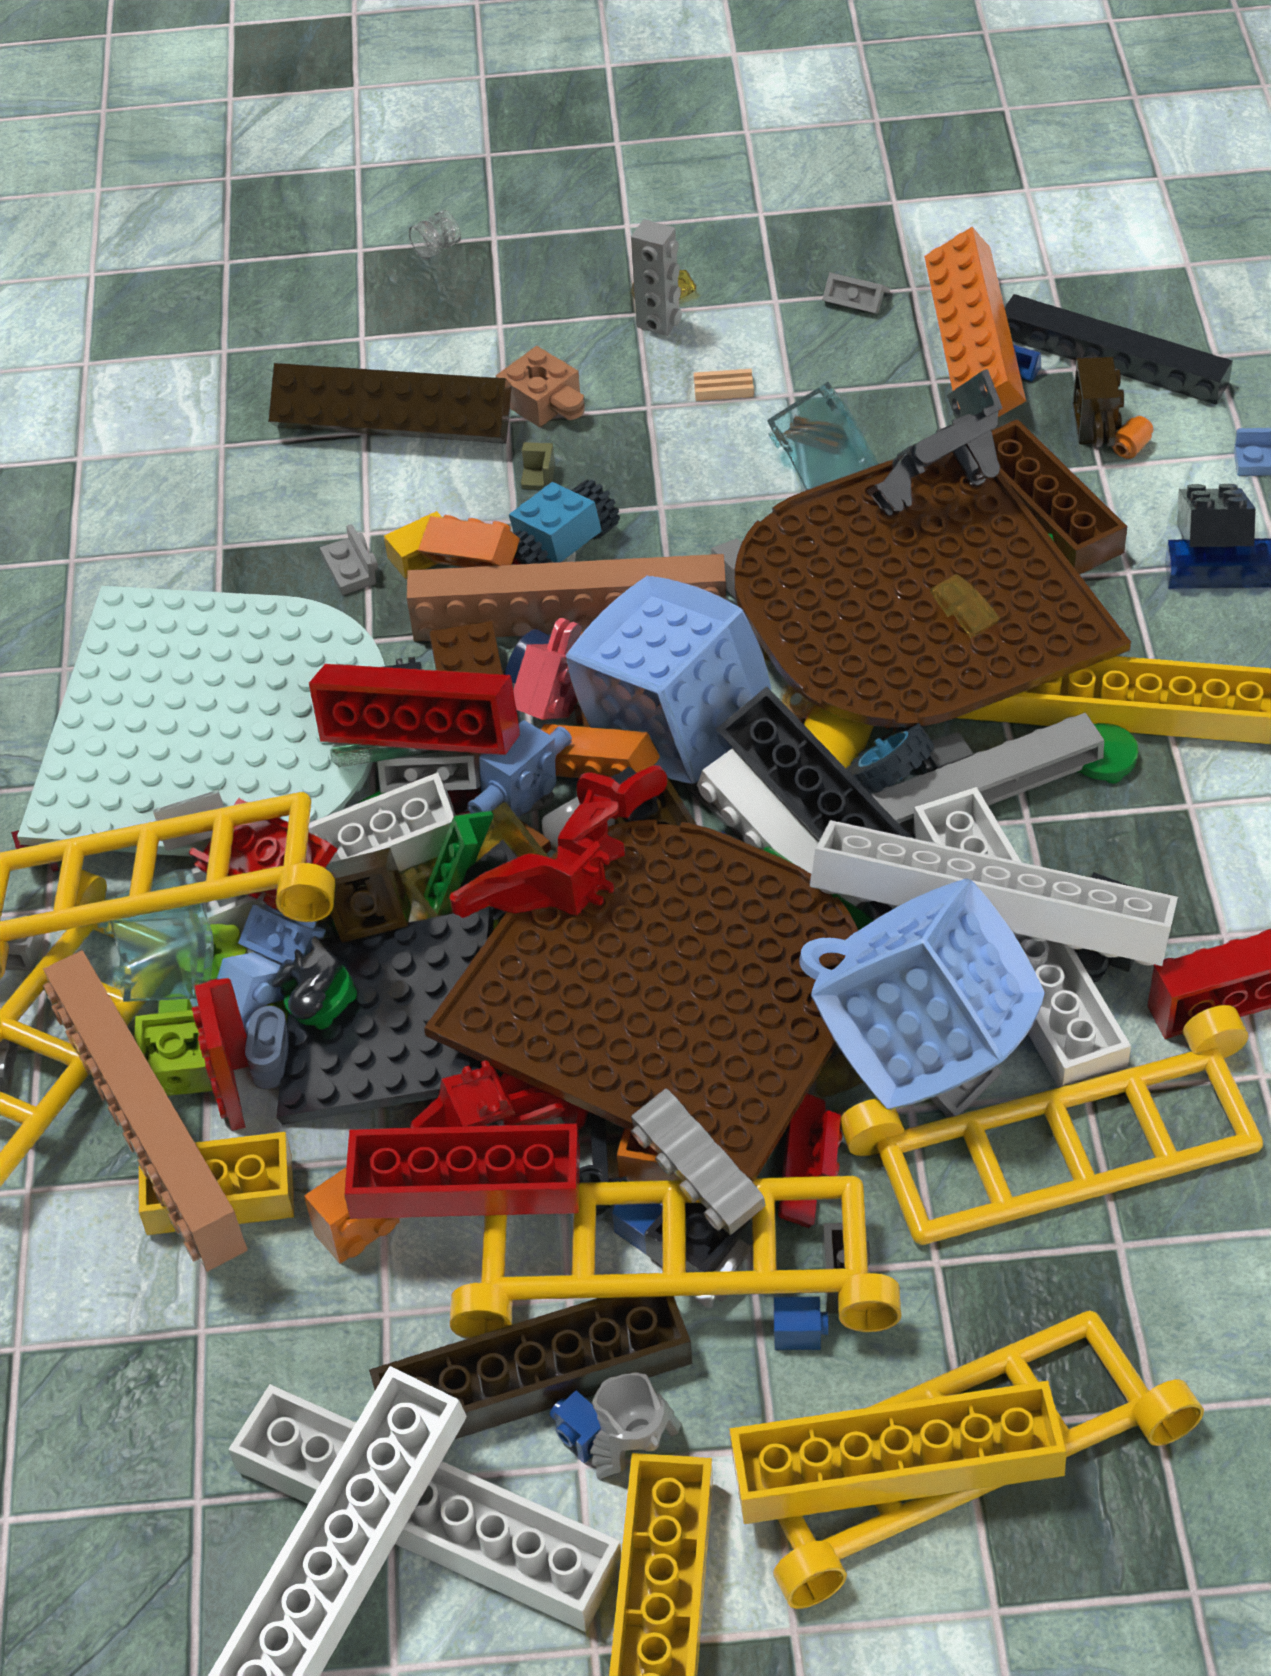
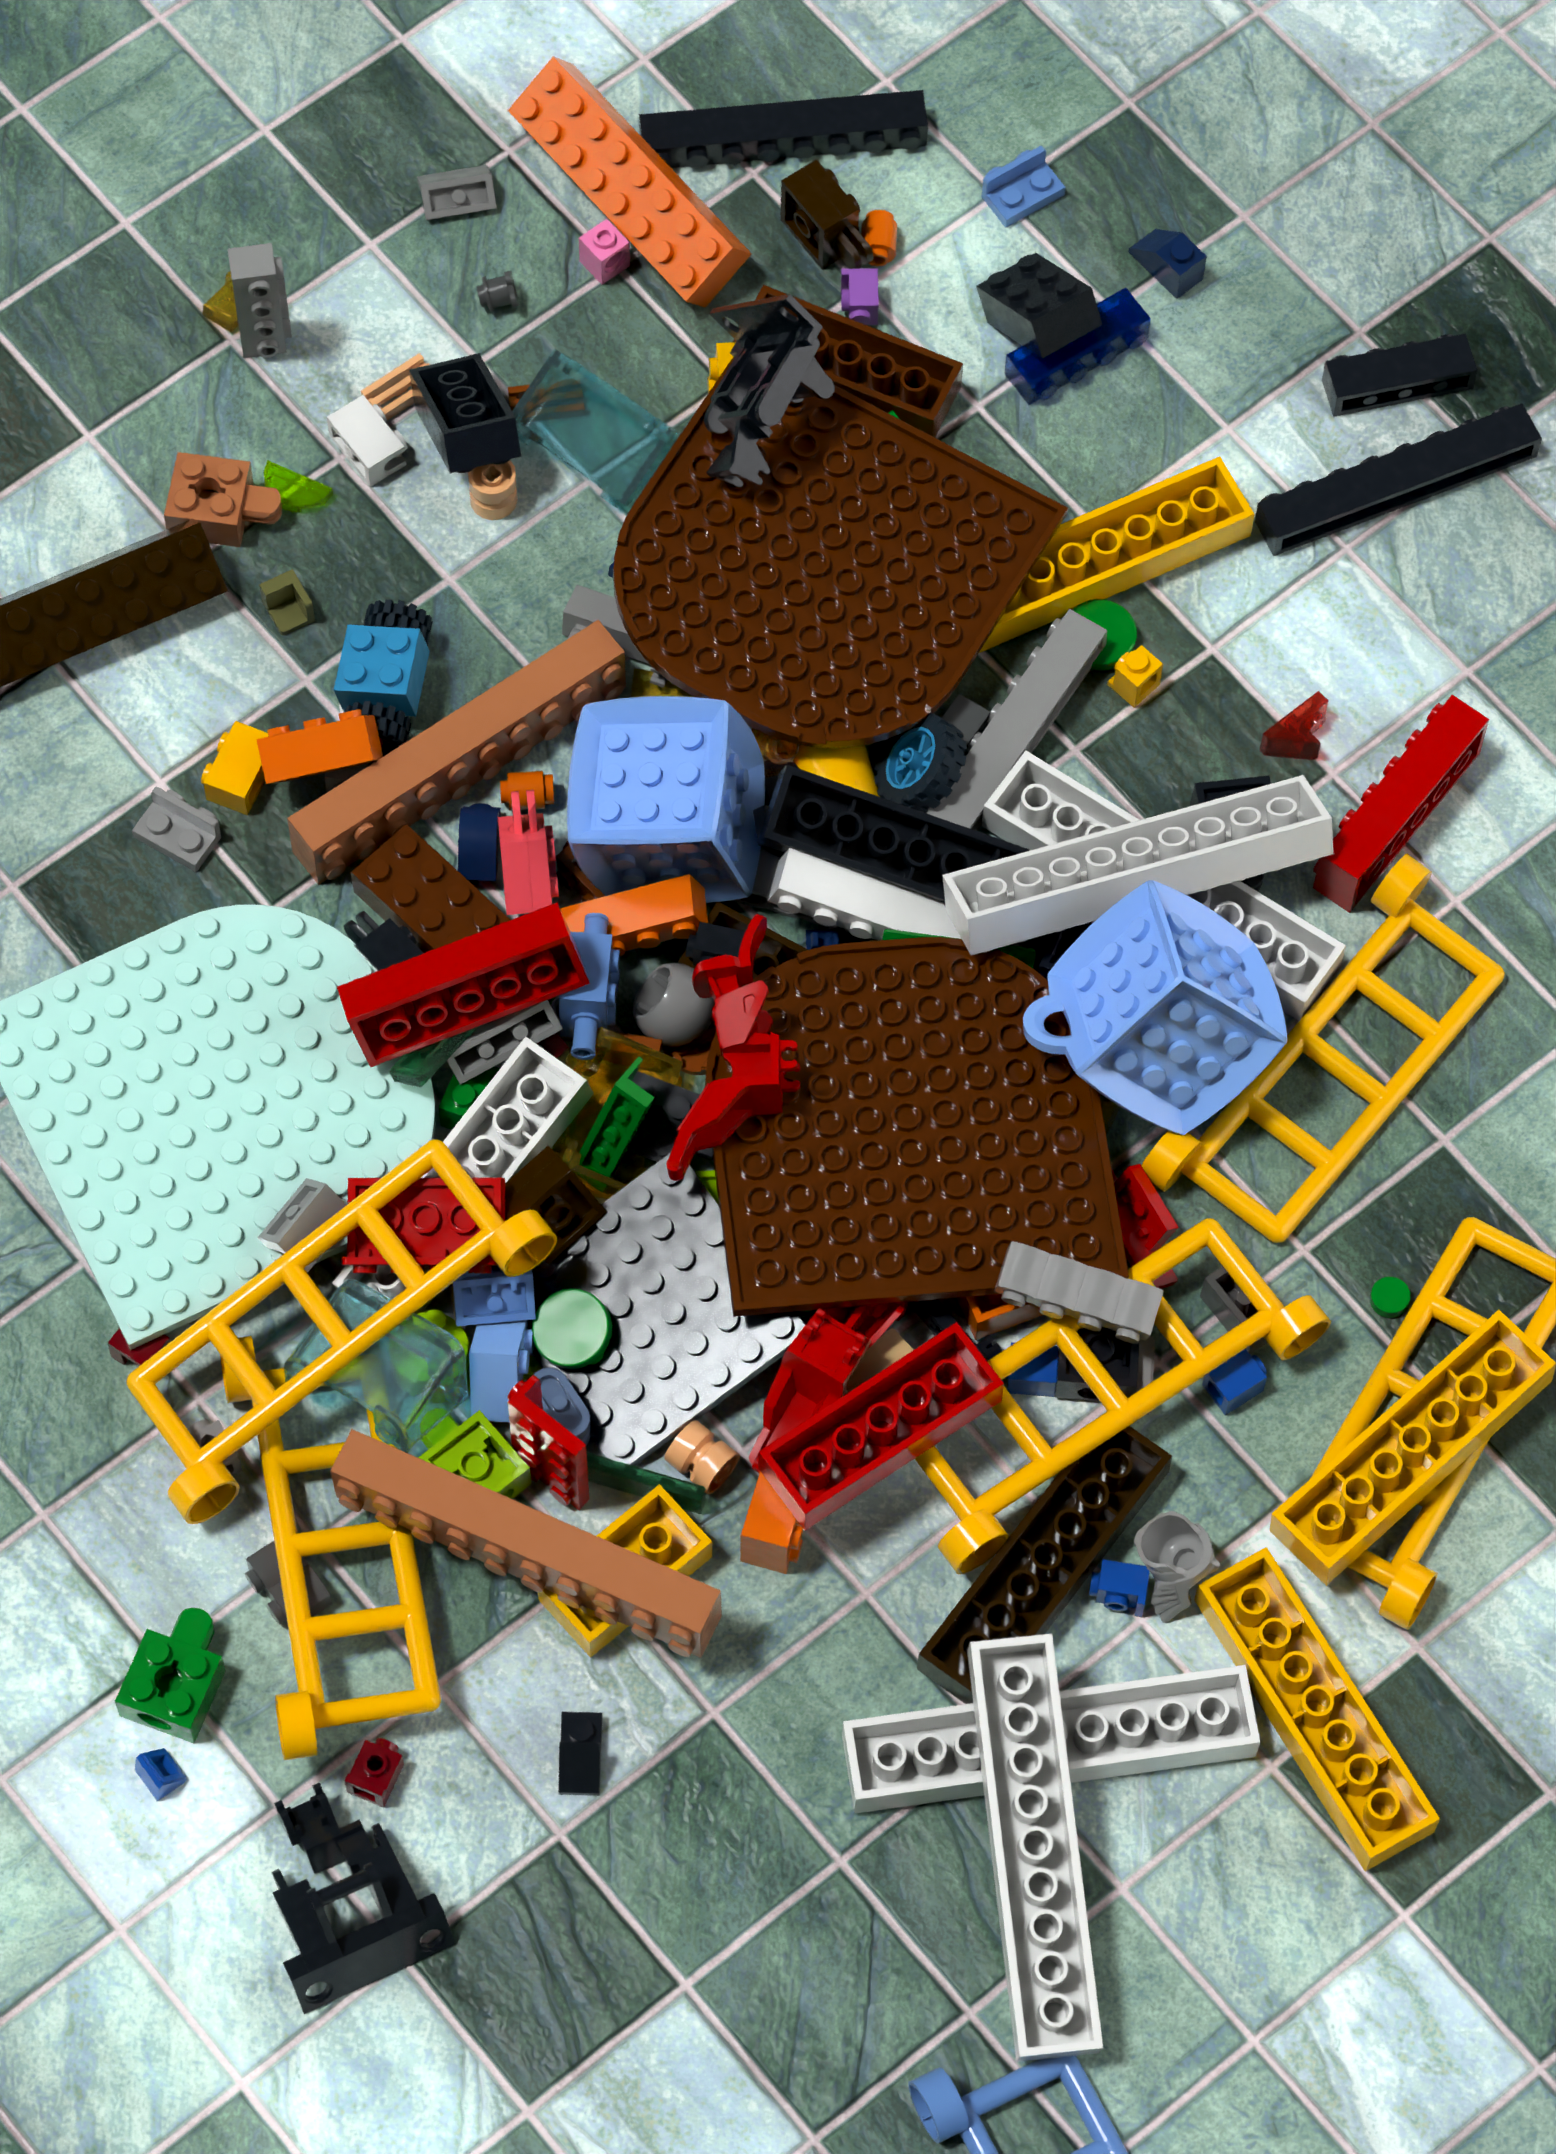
camera: 40 degrees left, 15 degrees up
(77, 1299) = (580, 1753): none -> black slope
(277, 1121) = (642, 1481): none -> clear green tile
(310, 977) = (567, 1315): black animal -> none
(333, 1134) = (698, 1453): none -> light nougat wheel
(601, 408) = (295, 489): none -> clear neon green tile
(672, 401) = (367, 440): none -> white brick
(731, 459) = (493, 490): none -> light nougat wheel
(740, 401) = (465, 413): none -> black brick
(834, 356) = (498, 292): none -> dark grey brick
(926, 363) = (604, 251): none -> bright pink brick
(966, 603) = (892, 554): clear yellow slope -> none
(980, 1336) = (1389, 1297): none -> green tile
(1028, 362) = (707, 191): blue slope -> none
(1092, 463) = (860, 294): none -> medium lavender brick
(1110, 779) = (1136, 675): none -> yellow brick
(1209, 885) = (1293, 733): none -> clear red slope

